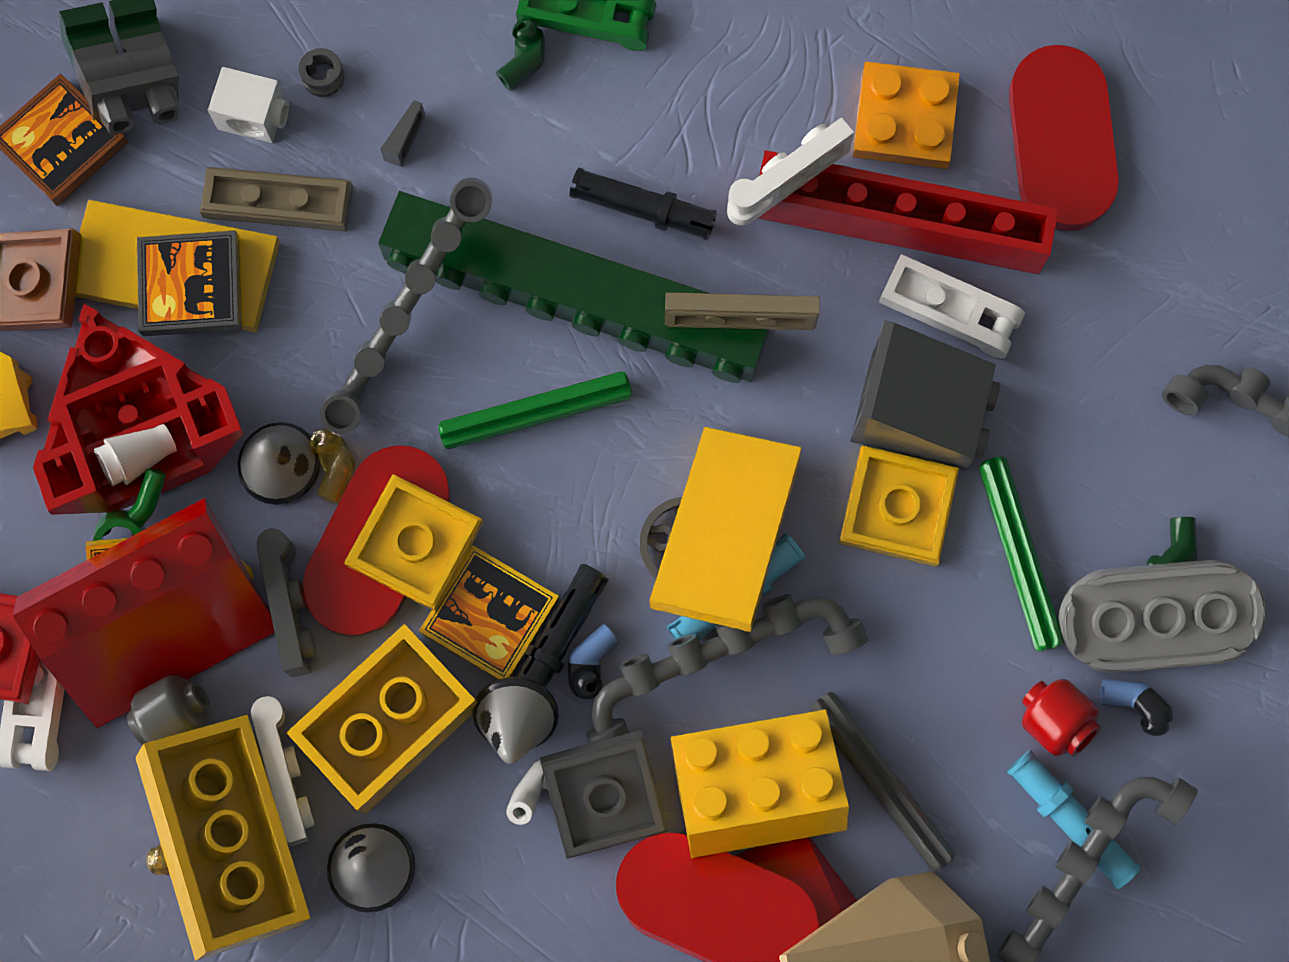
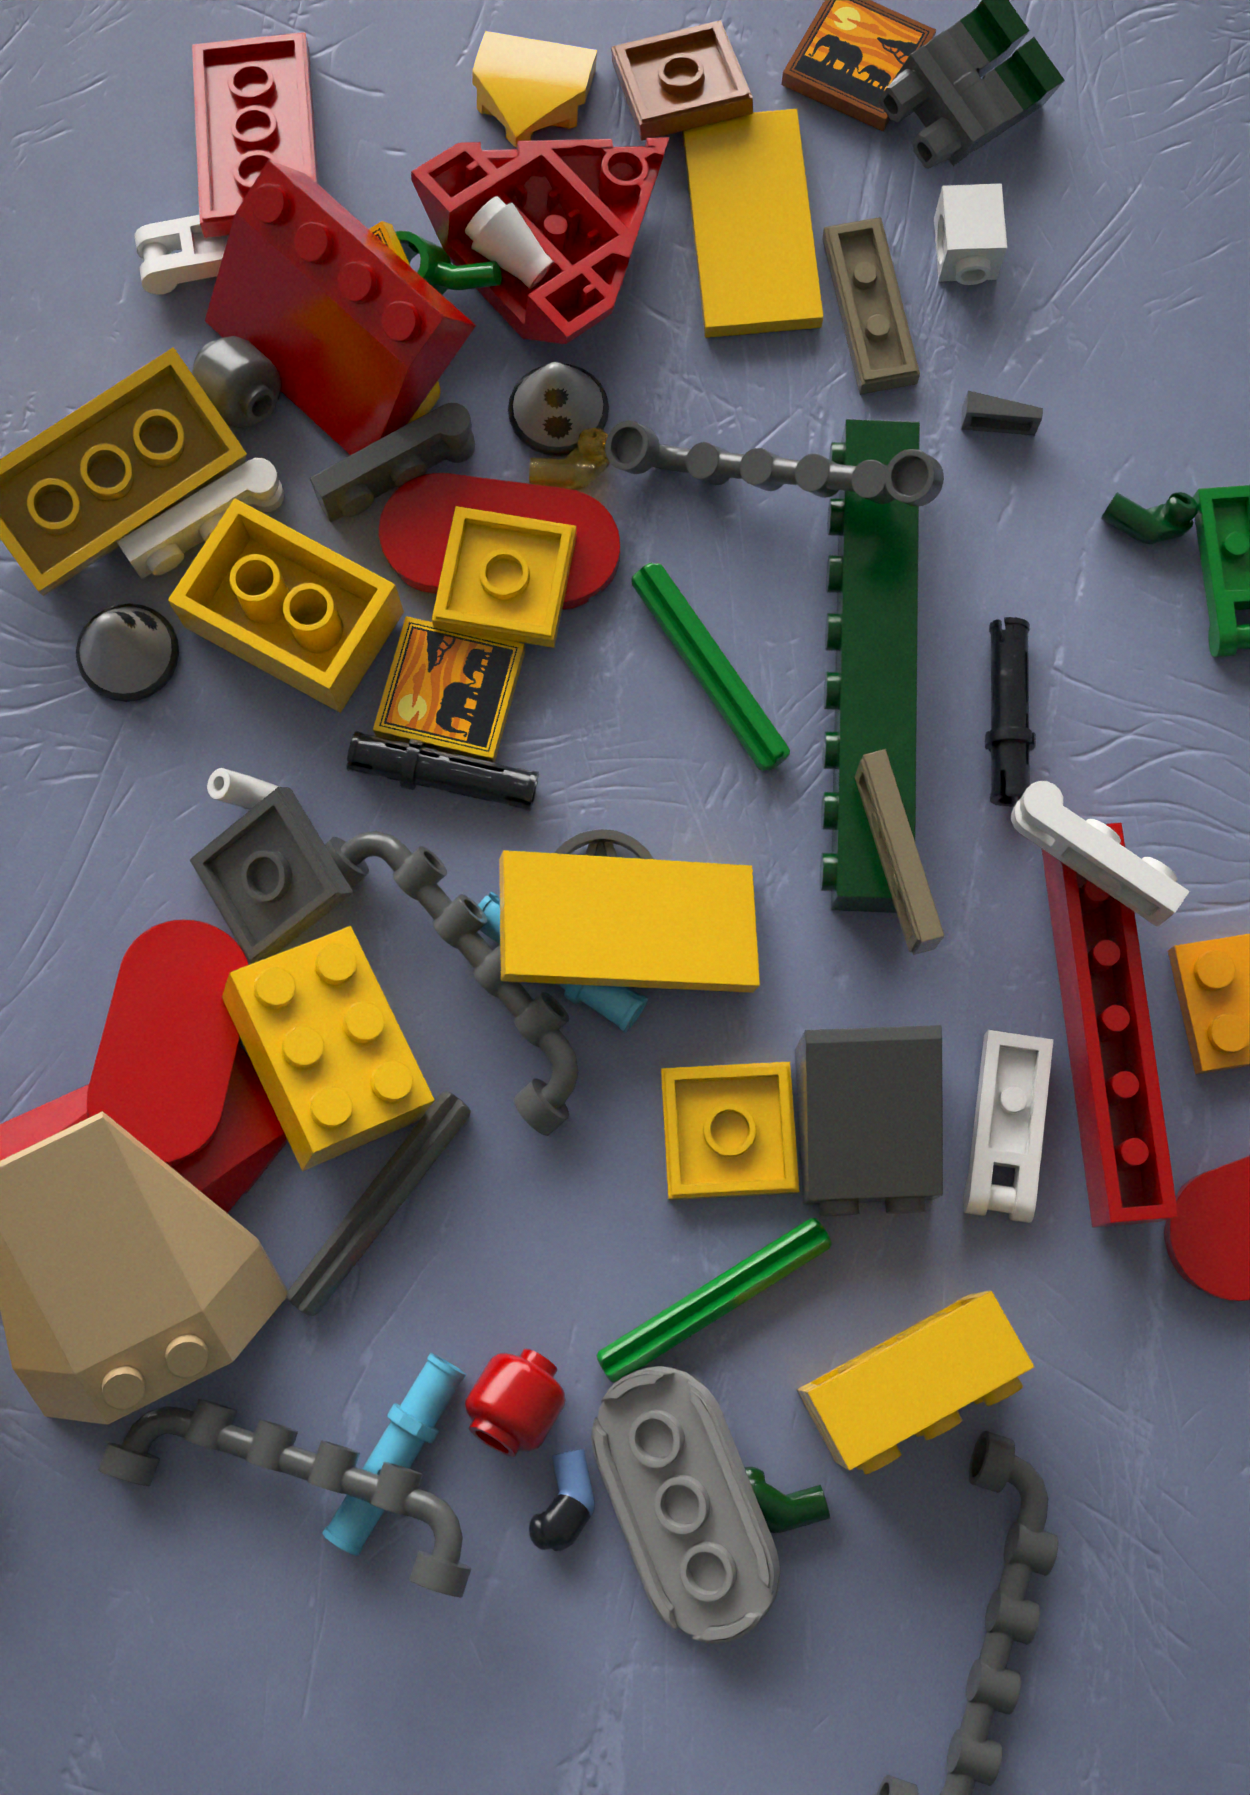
camera: 75 degrees right, 0 degrees up
(189, 283) = (732, 240): tile -> none
(334, 76) = (1041, 318): dark grey bush -> none
(515, 716) = (327, 748): light grey hat -> none
(584, 662) = (423, 814): arm -> none
(1122, 425) = (917, 1382): none -> yellow brick

